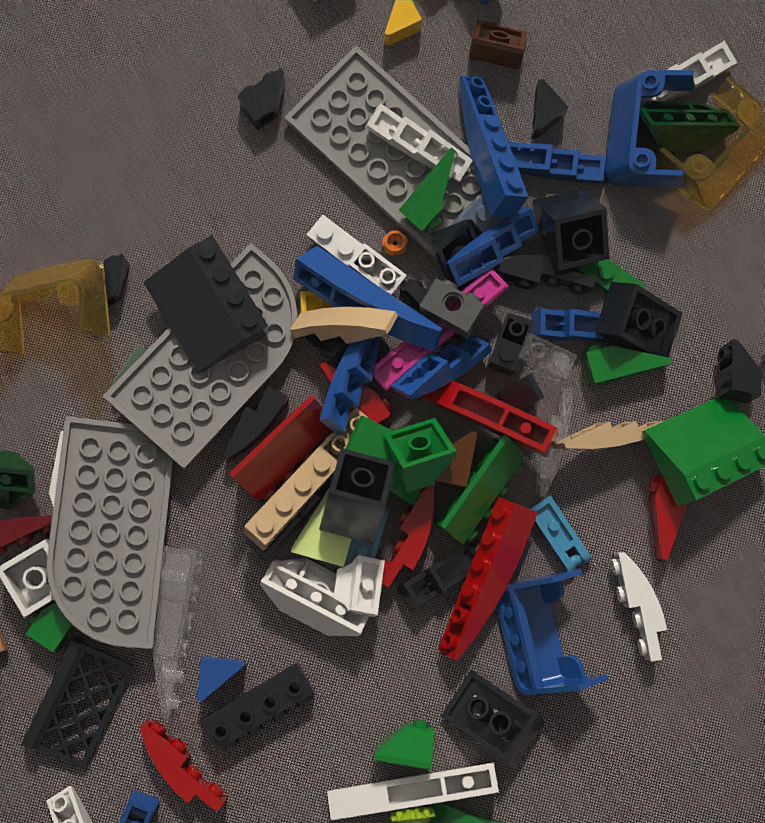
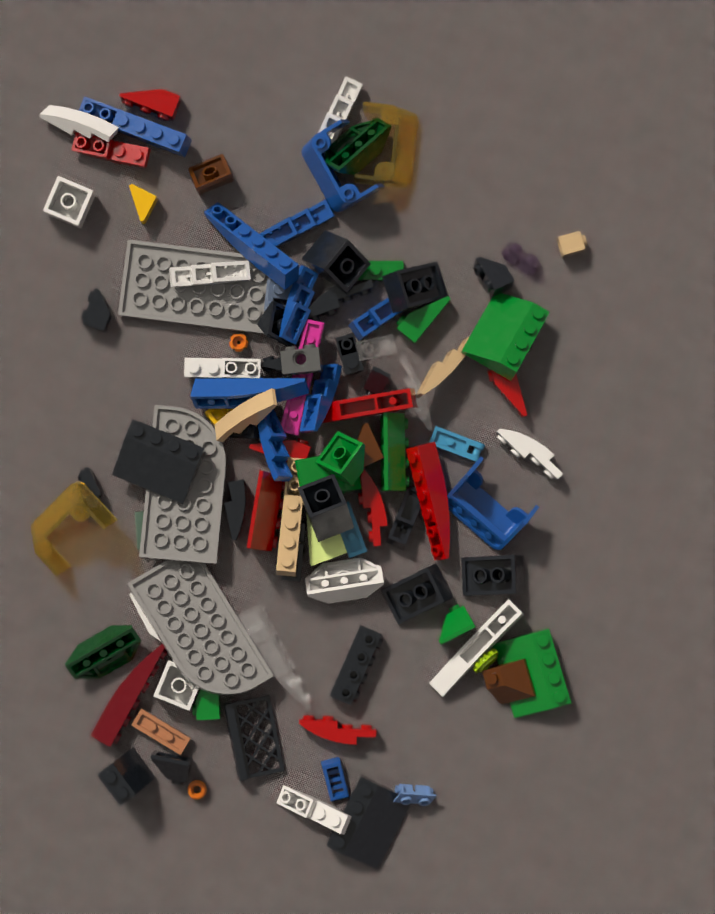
camera: 30 degrees left, 5 degrees up
(215, 672) = (318, 664): blue slope -> none
(360, 585) = (364, 556): white slope -> none
(389, 675) = (417, 593): none -> black slope
(430, 197) = (241, 302): green slope -> none
(547, 109) = (270, 196): black slope -> none

